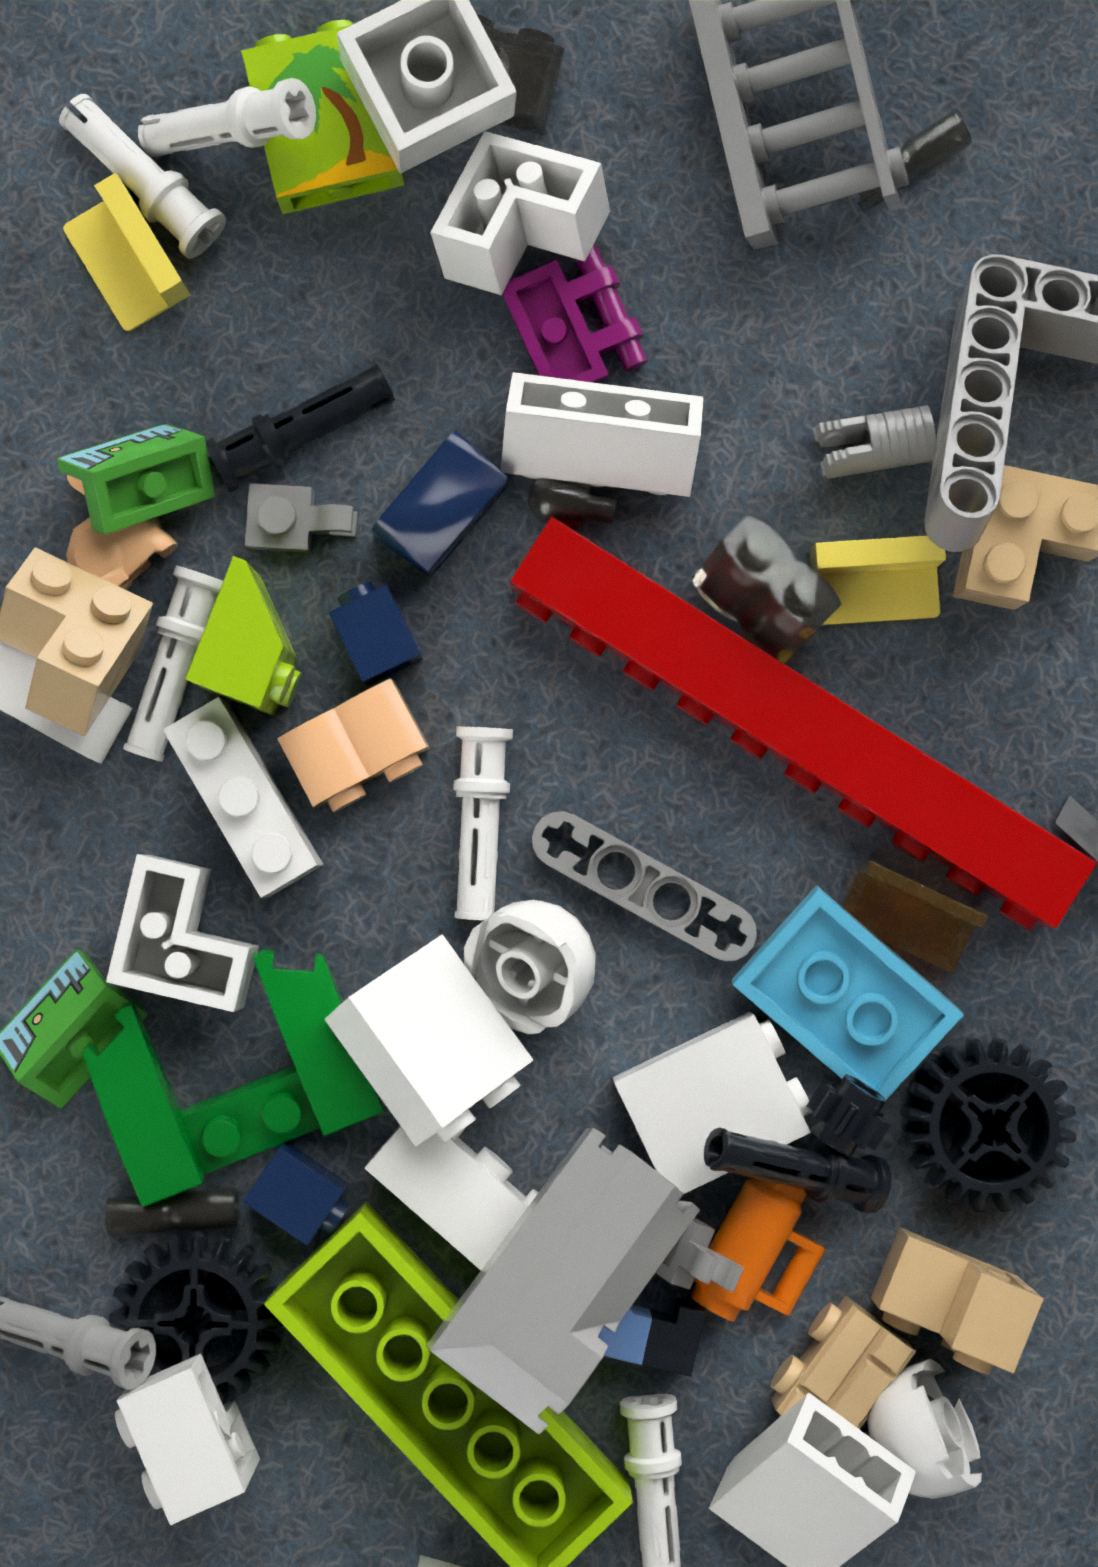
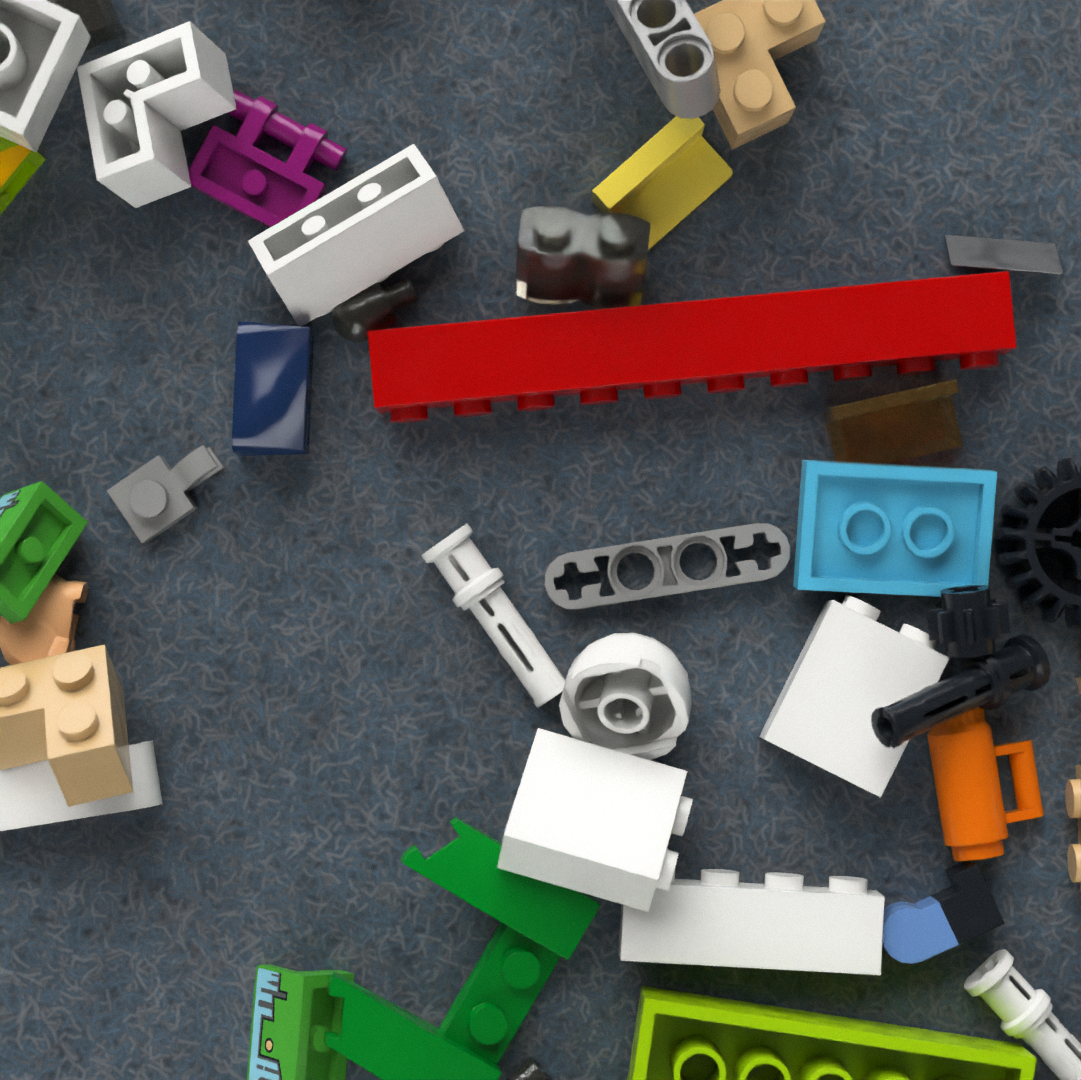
camera: 30 degrees left, 0 degrees up
(160, 941) = (329, 912): white brick -> none
(166, 683) = (147, 649): white pin -> none
(243, 797) = (295, 742): white brick -> none
(246, 646) = (205, 622): lime slope -> none
(272, 438) = (97, 442): black pin -> none
(299, 1194) = (585, 1022): dark blue brick -> none
(354, 745) = (351, 633): light nougat brick -> none
(374, 632) = (298, 531): dark blue brick -> none
(562, 1276) = (844, 924): light grey brick -> none
(693, 1259) = (919, 833): light grey plate -> none
(889, 438) = (587, 64): light grey hinge -> none

